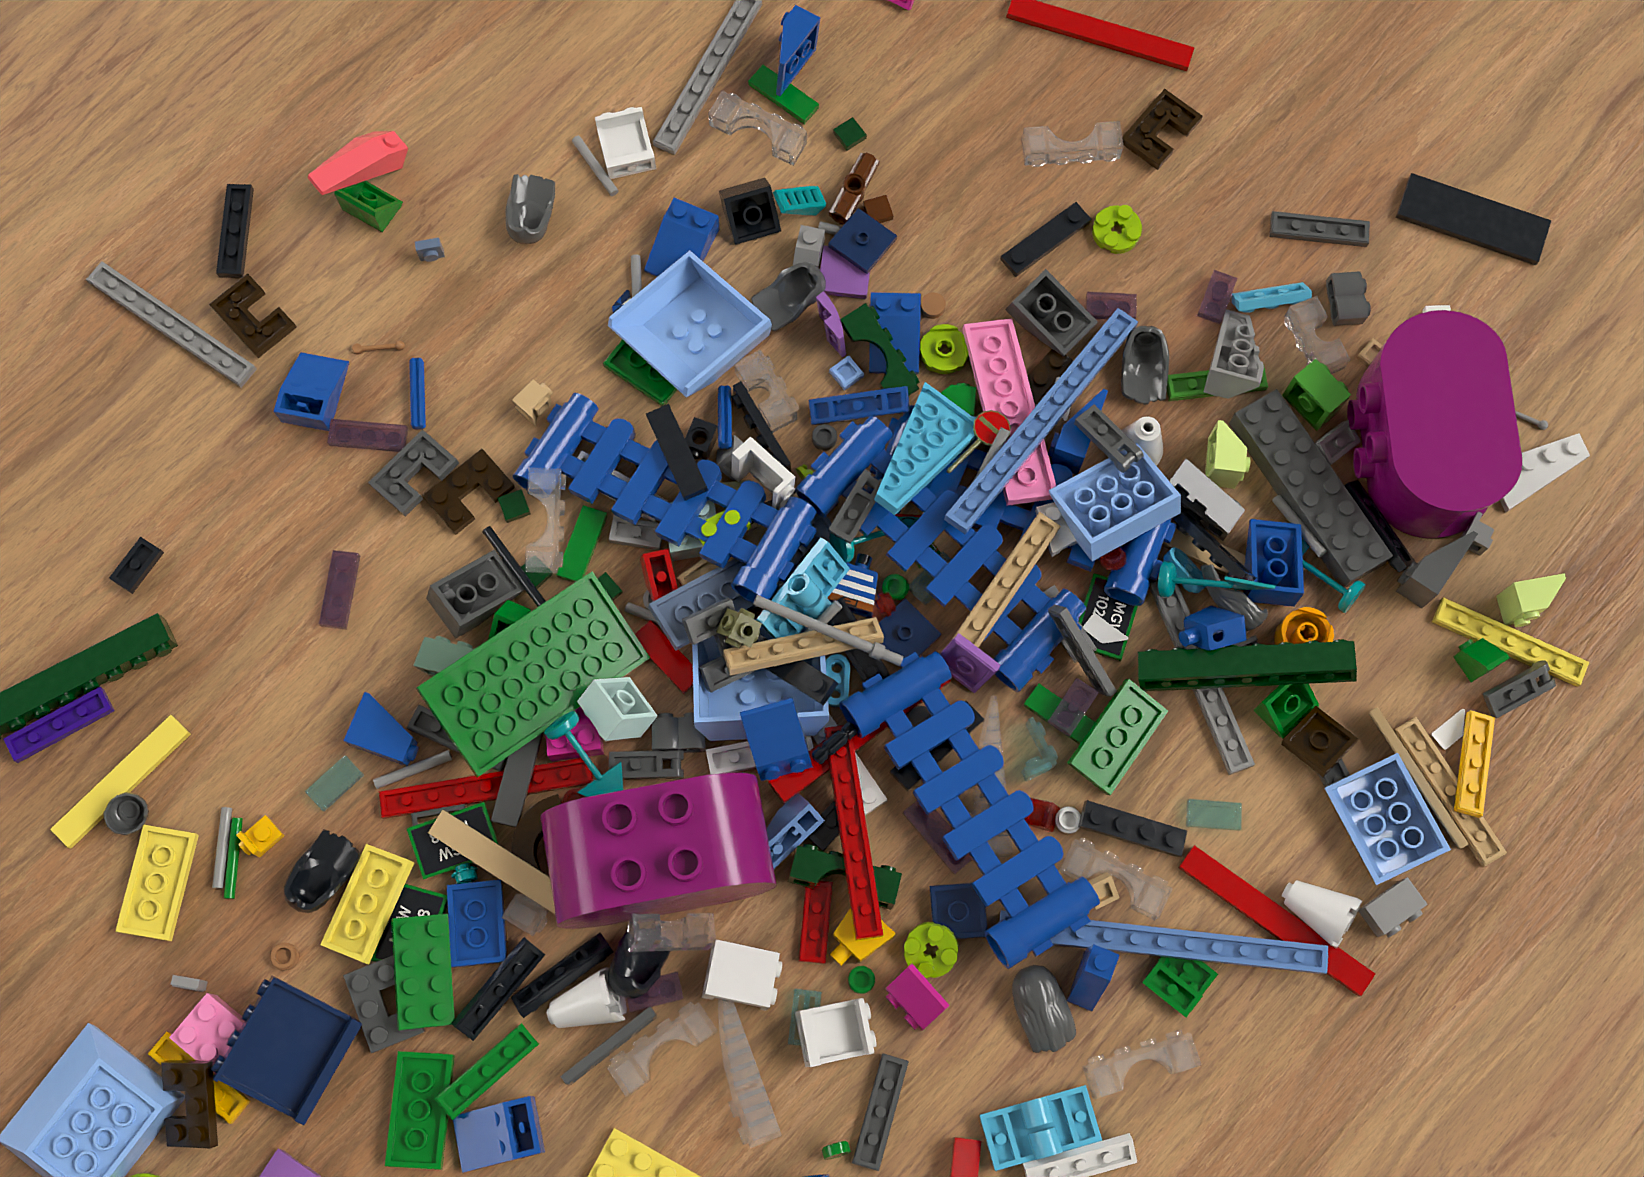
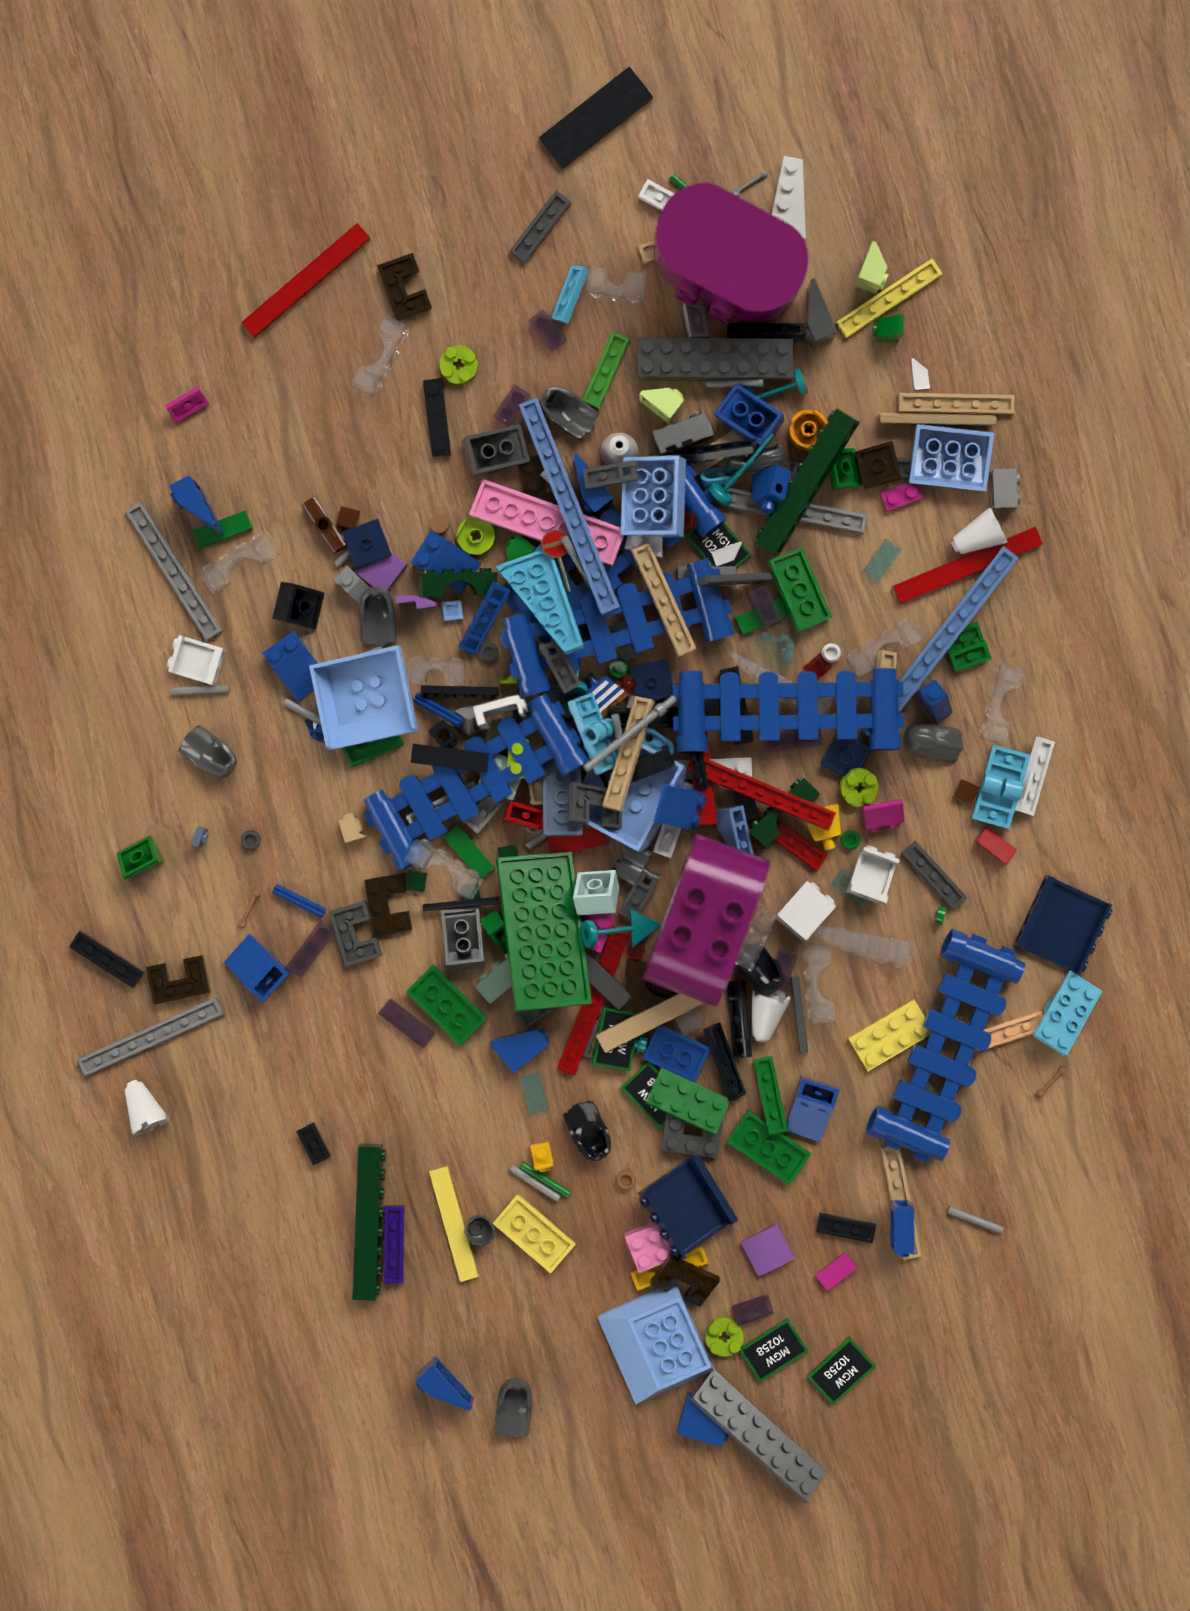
camera: 60 degrees left, 15 degrees up
(77, 357) = (143, 1109): none -> white cone
(188, 983) = (609, 1245): light grey tile -> none
(360, 161) = (106, 849): coral wedge -> none
(367, 904) = (625, 1112): light yellow plate -> none
(385, 620) = (446, 1004): none -> green plate
(412, 769) = (554, 1040): light grey bar -> none
(458, 306) = (251, 839): none -> dark grey tile
(739, 628) = (595, 788): olive brick -> none
(803, 200) = (313, 567): teal slope -> none
(849, 133) = (279, 502): dark green tile -> none
(968, 663) = (698, 655): medium lavender tile -> none
(1007, 1088) = (966, 791): none -> reddish brown tile
(1132, 828) = (861, 617): black plate -> none
(1235, 360) = (601, 350): light grey wedge -> none
(1302, 792) = (901, 496): none -> dark pink plate
(1316, 394) = (657, 312): bright green brick -> none
(1347, 298) = (601, 244): dark grey brick -> none
(1474, 764) = (950, 377): yellow tile -> none
(1482, 541) = (813, 271): light grey panel -> none
(1519, 689) = (922, 315): dark grey plate -> none

